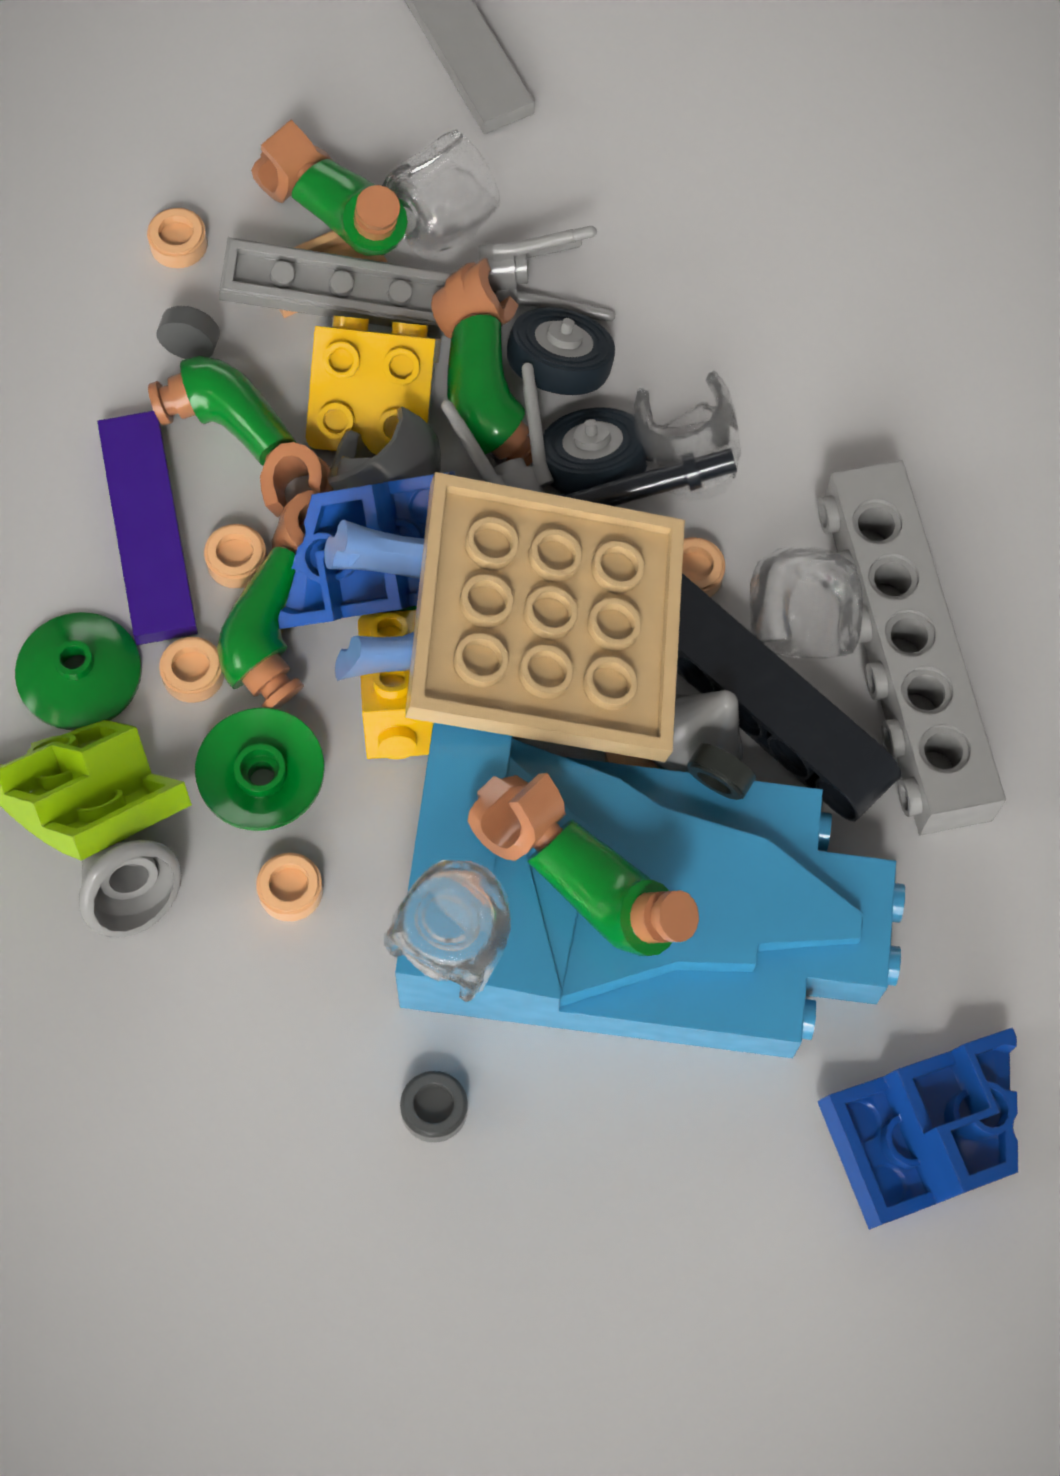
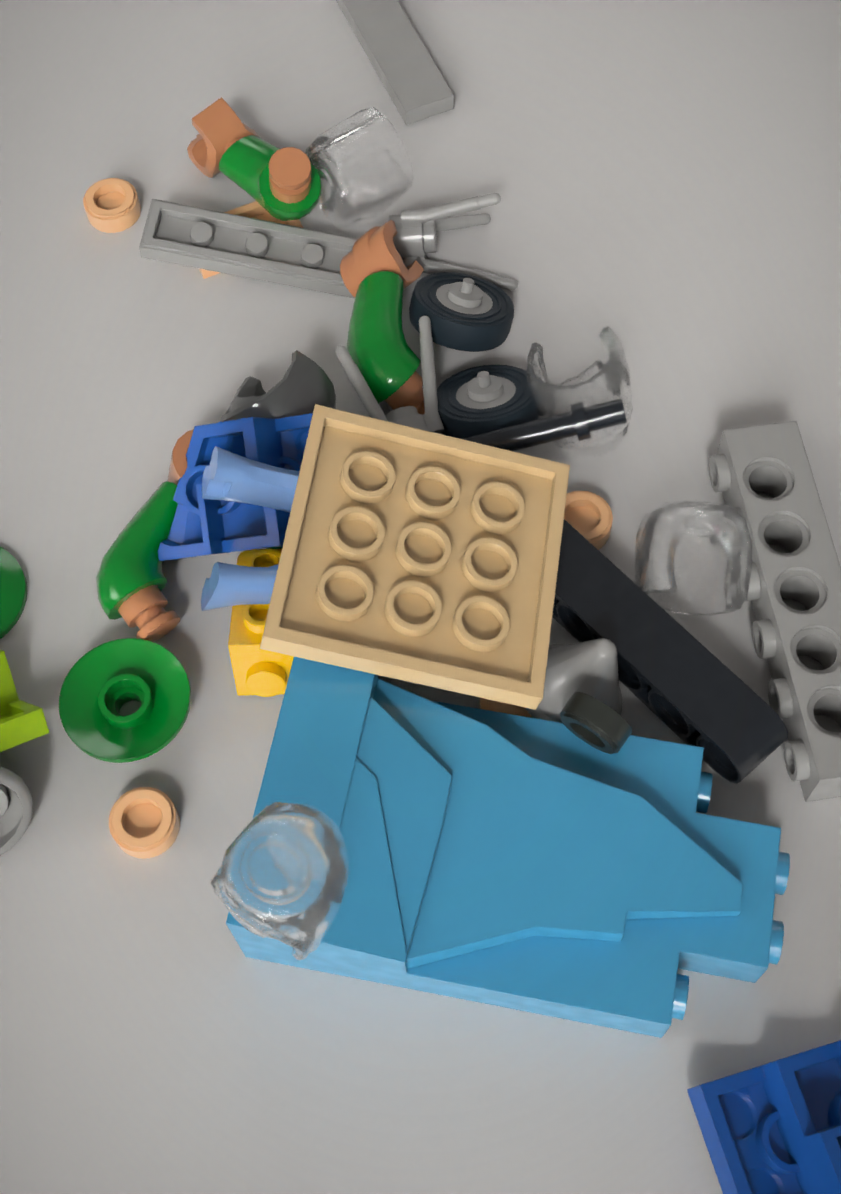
camera: 10 degrees right, 5 degrees down
(147, 528) = (48, 465): dark purple tile -> none
(188, 332) = (108, 285): dark grey tile -> none
(191, 669) = (72, 599): light nougat tile -> none
(227, 397) = (136, 343): piece -> none
(234, 555) = (127, 489): light nougat tile -> none
(365, 378) = (267, 323): yellow bracket -> none
(434, 1106) = (269, 1069): dark grey tile -> none
(591, 876) = (446, 828): piece -> none

